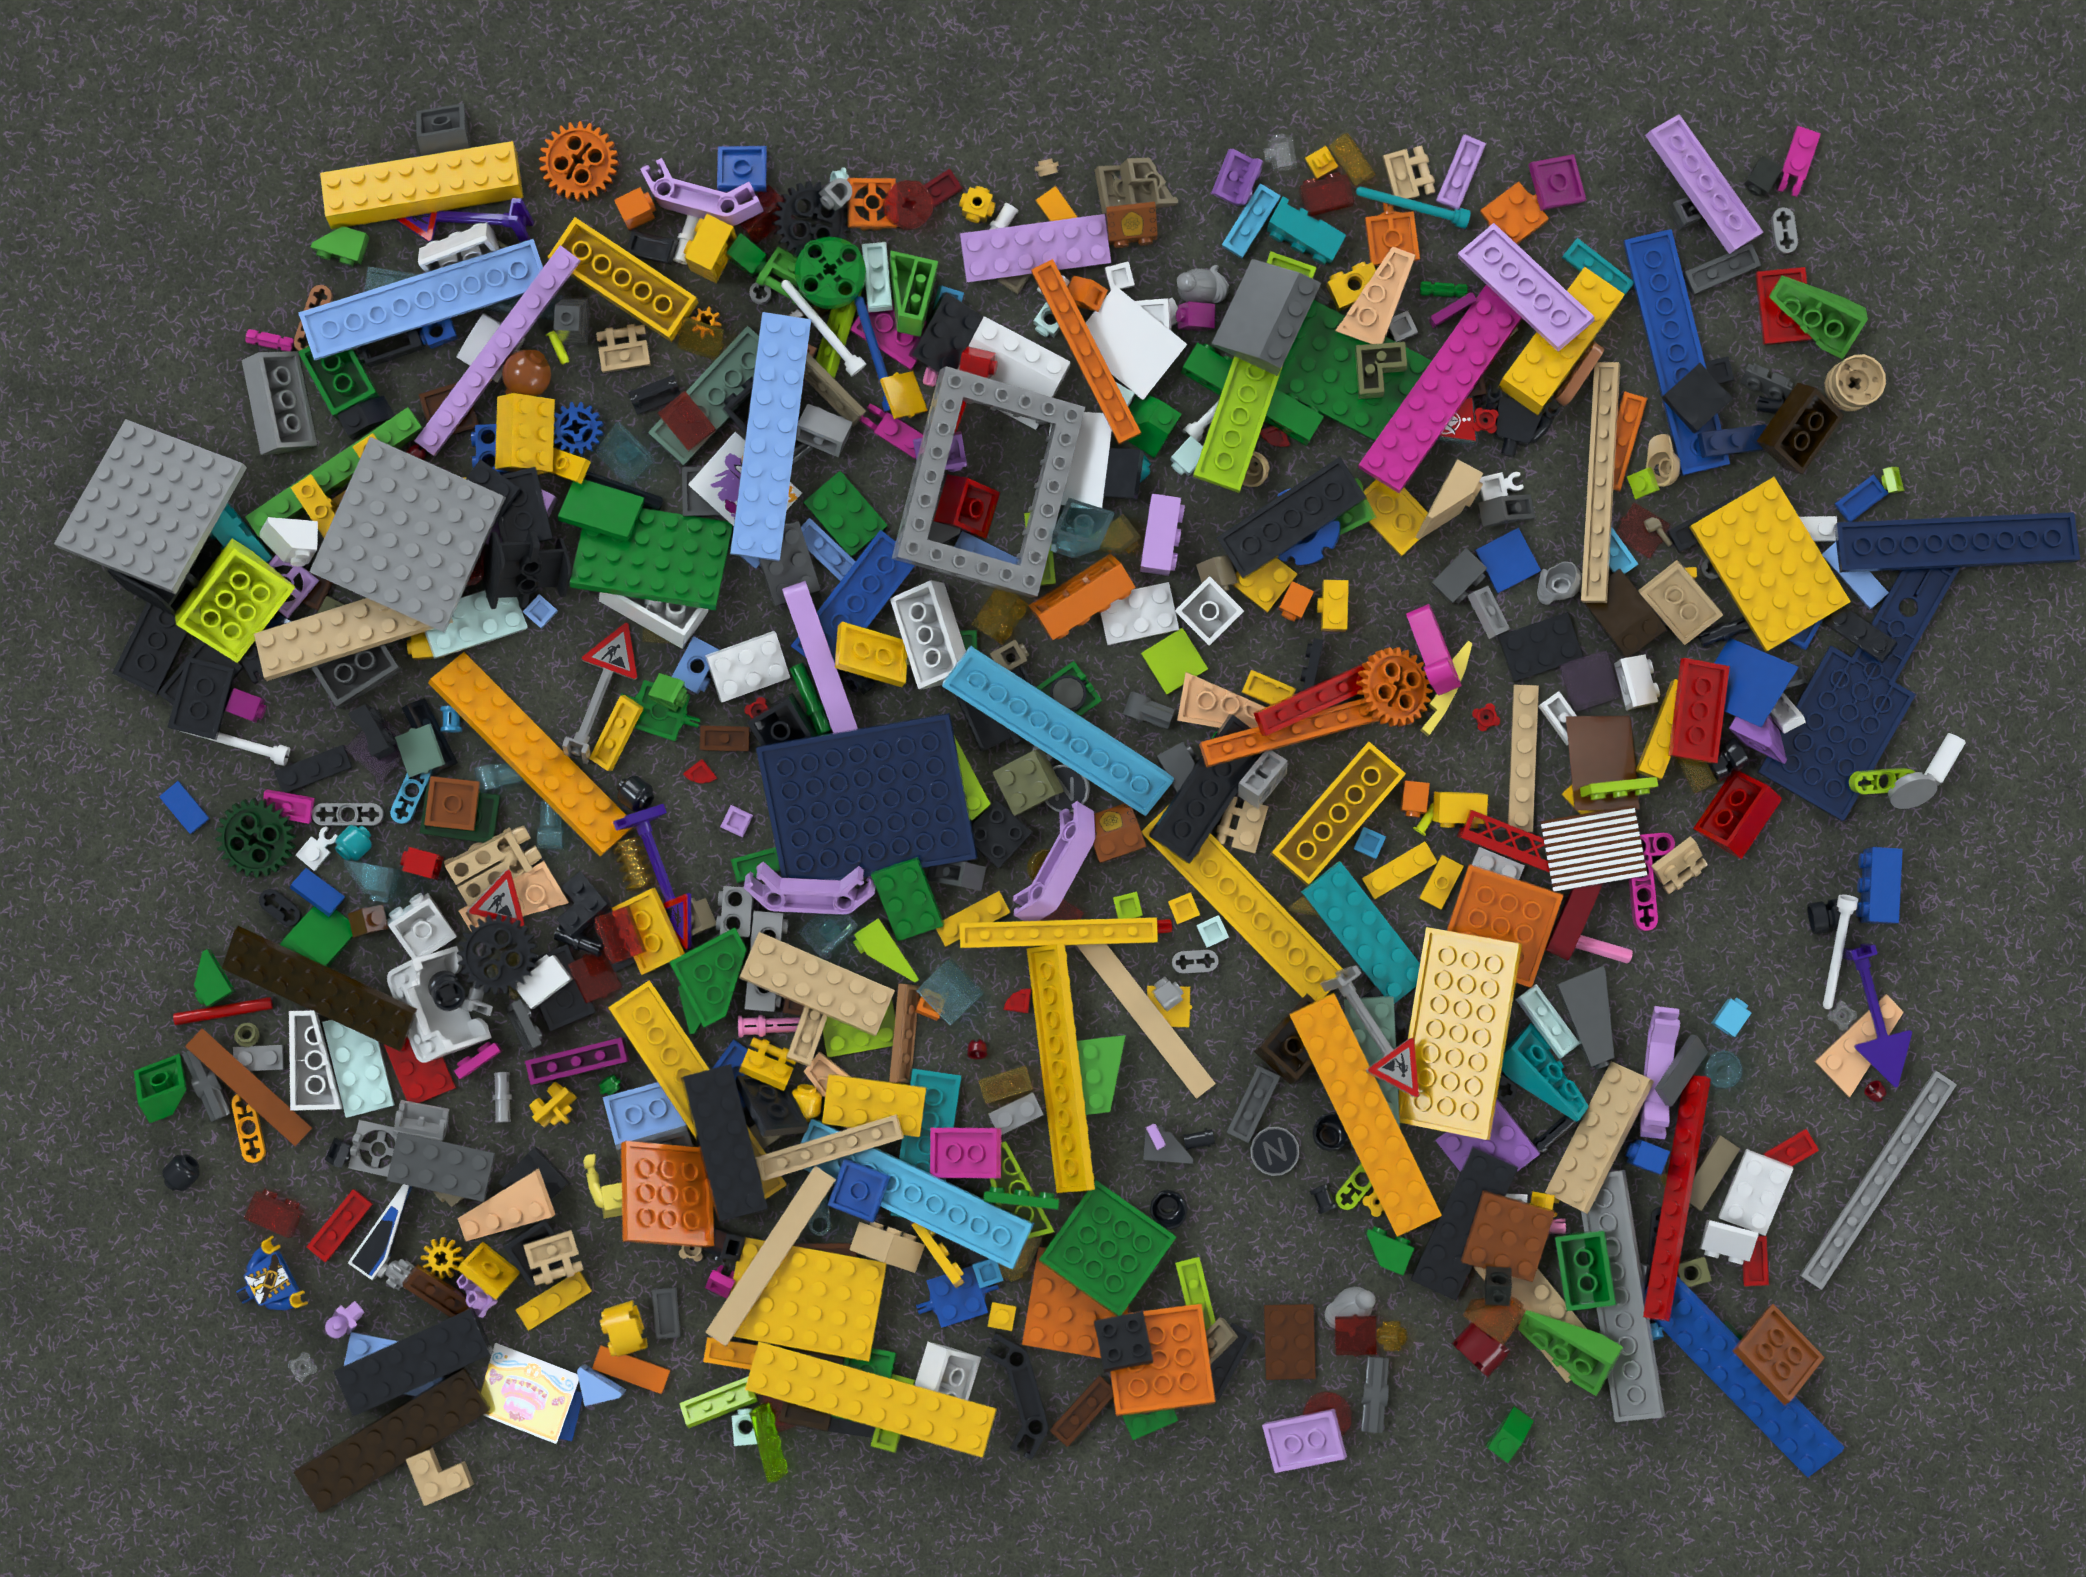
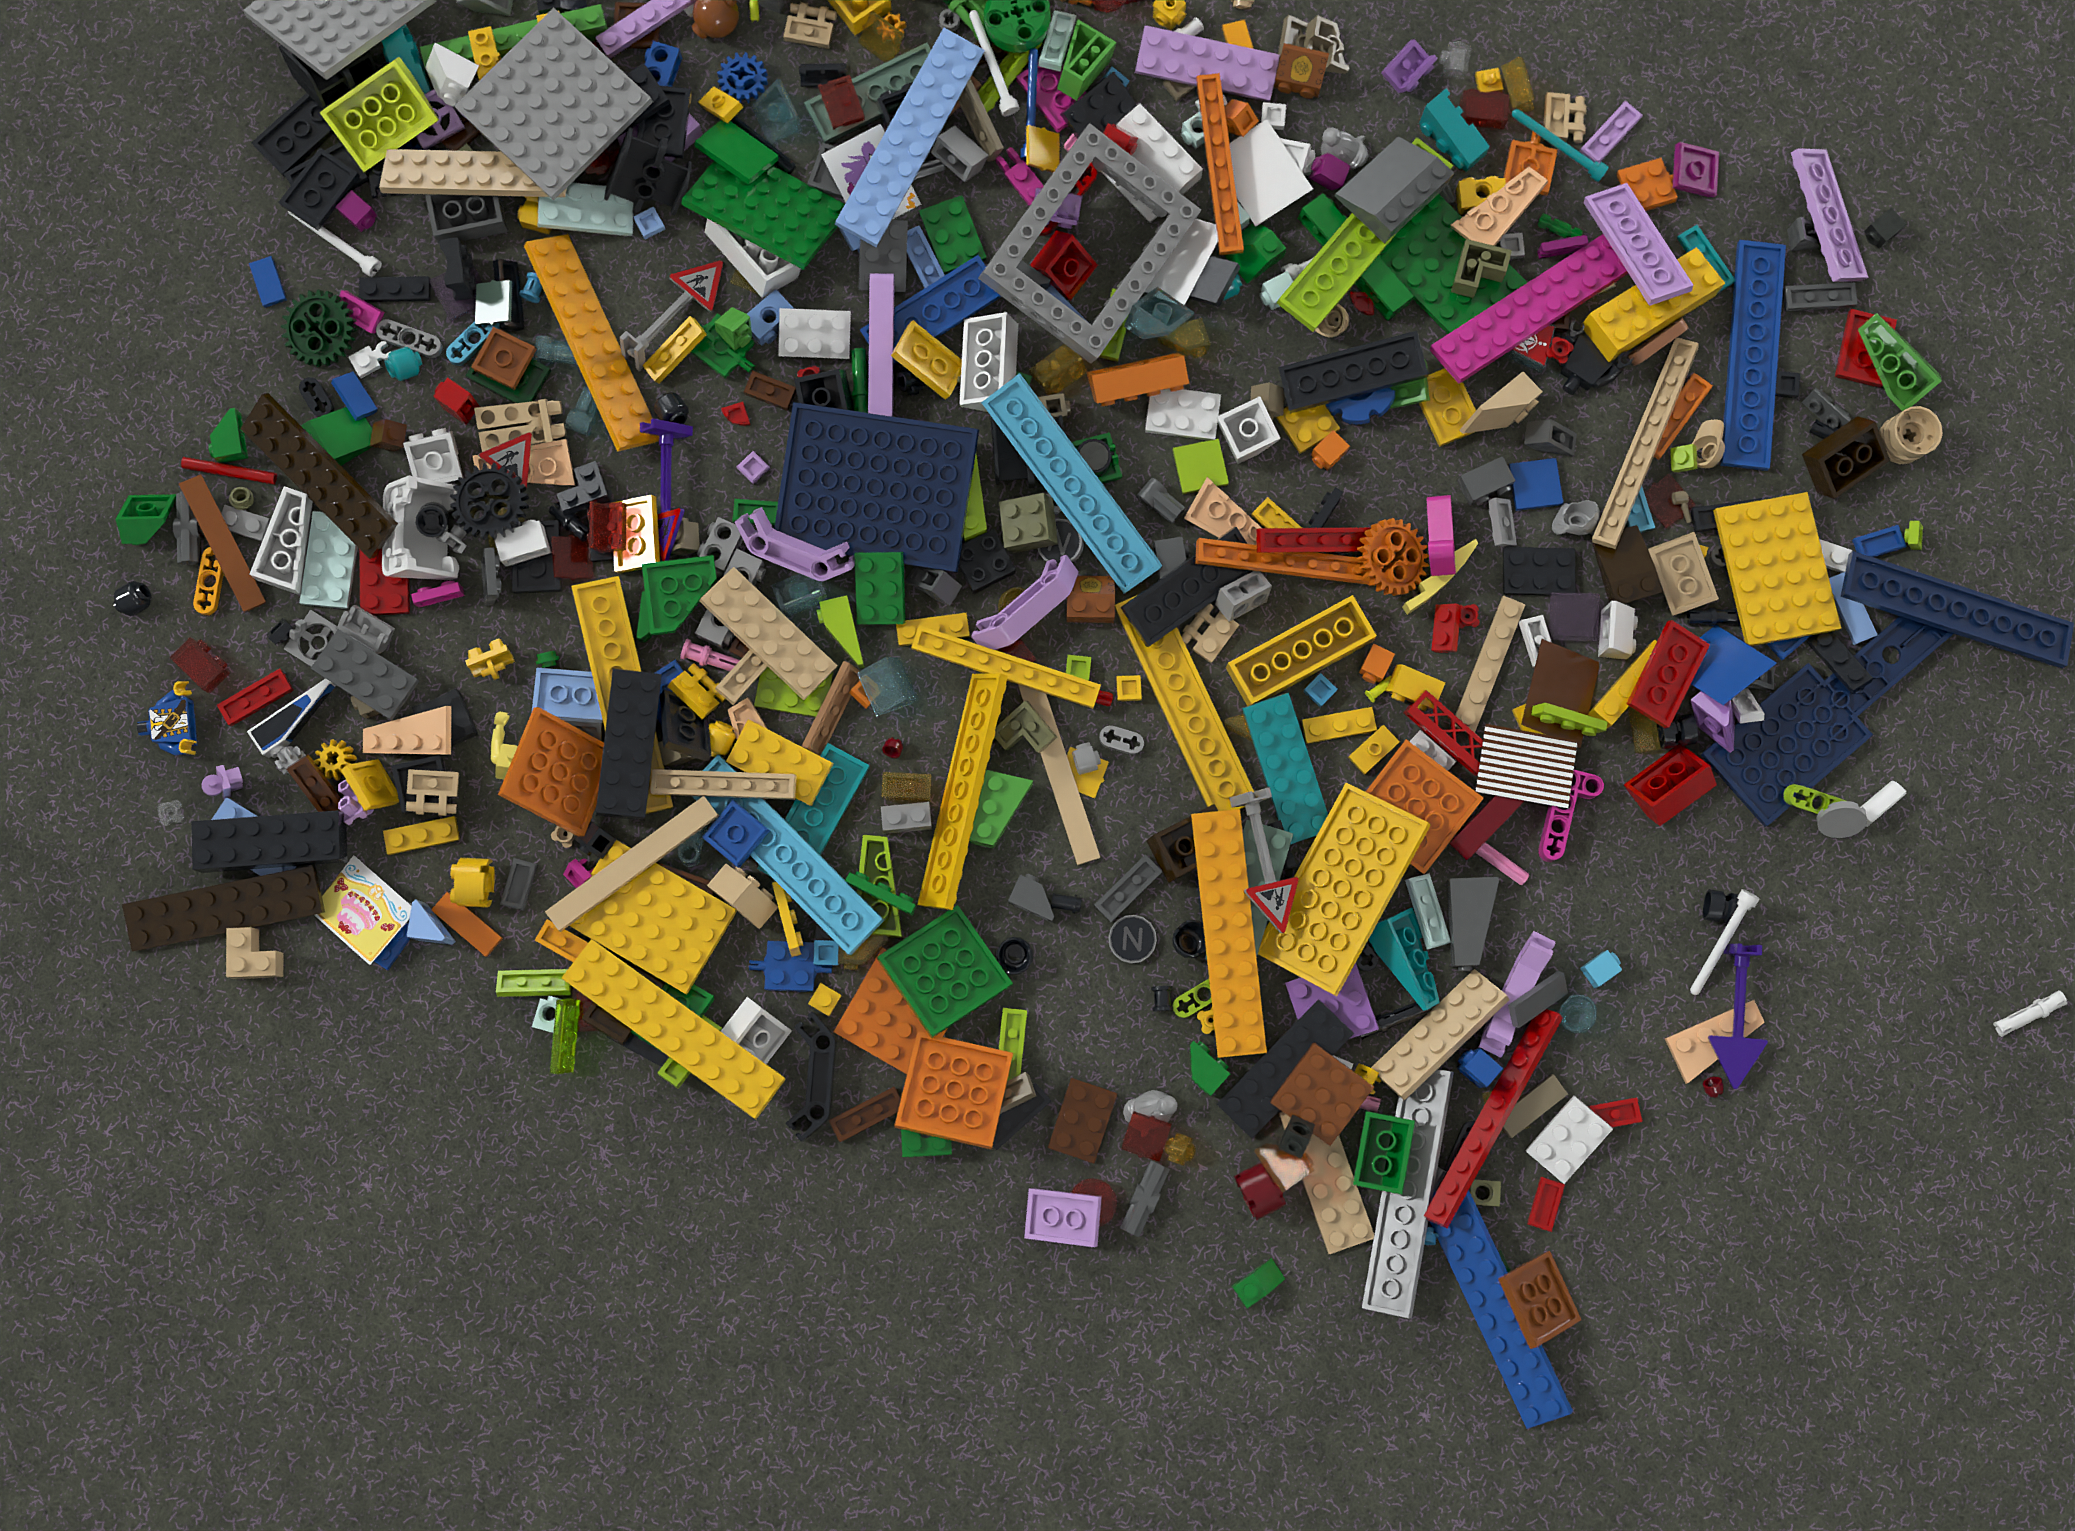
camera: 20 degrees right, 5 degrees down
(374, 880) = (409, 401): clear light blue slope -> none
(502, 1097) = (447, 635): light grey pin -> none
(524, 433) = (695, 60): yellow brick -> none
(577, 1061) = (526, 626): magenta brick -> none
(632, 864) = (643, 470): clear yellow piece -> none
(965, 1152) = (846, 833): dark pink plate -> none
(1018, 1001) = (947, 718): red tile -> none
(1098, 979) = (1024, 723): none -> olive plate
(1123, 1341) = (926, 1059): black brick -> none
(1155, 1136) = (1026, 881): lavender tile -> none
(1162, 535) = (1229, 348): lavender brick -> none
(1212, 931) = (1147, 718): light aqua plate -> none
(1251, 221) = (1406, 109): medium azure plate -> none
(1333, 605) = (1363, 466): yellow brick -> none
(1470, 737) = (1446, 628): none -> red plate
(1497, 486) = (1549, 410): white plate -> none
(1579, 1351) = (1352, 1228): bright green wedge -> none
(1676, 861) = (1599, 806): tan plate -> none
(1697, 398) = (1760, 397): black brick -> none
(1729, 1241) = (1528, 1175): white slope -> none
(1730, 441) = (1777, 448): dark blue plate -> none
(1790, 230) = (1892, 284): light grey beam -> none
(1799, 158) = (1922, 225): dark pink hinge -> none
(1849, 1015) = (1712, 1006): clear plate -> none
(1878, 1180) = (1688, 1170): light grey plate -> none
(1879, 885) = (1782, 895): blue brick -> none

